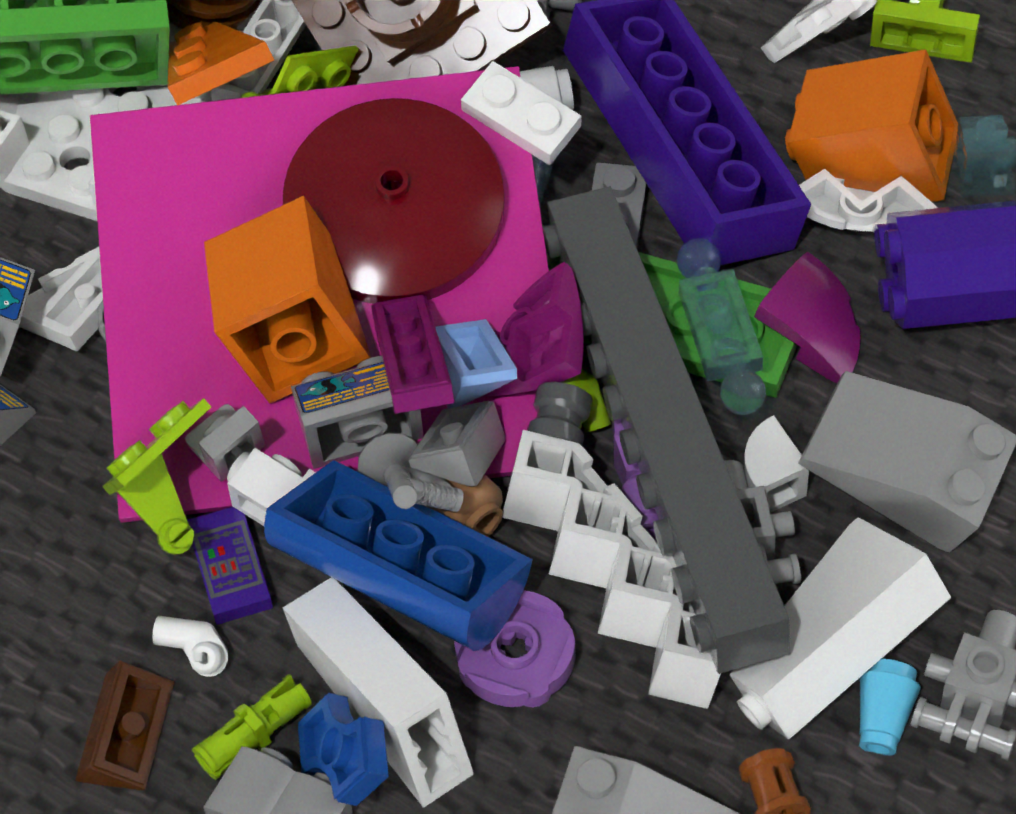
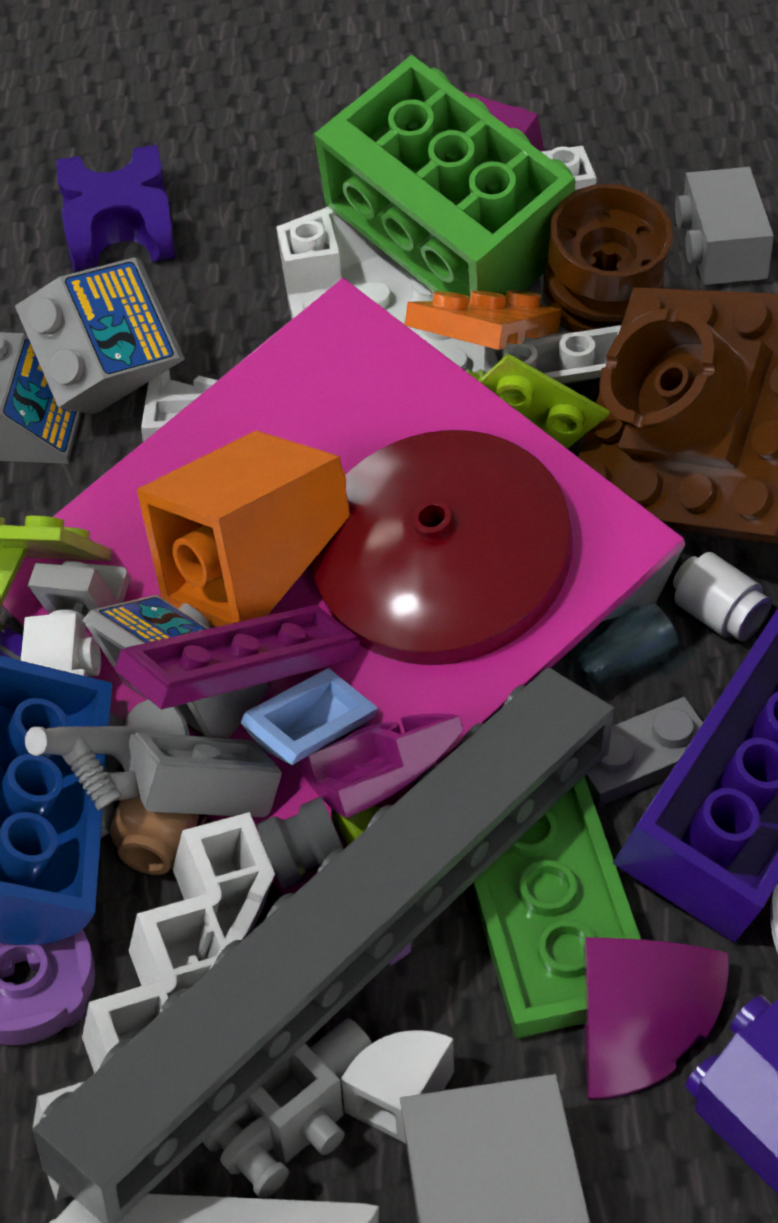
camera: 55 degrees right, 5 degrees down
(521, 112) = (626, 575): white plate -> none
(721, 326) = (533, 921): clear light blue plate -> none

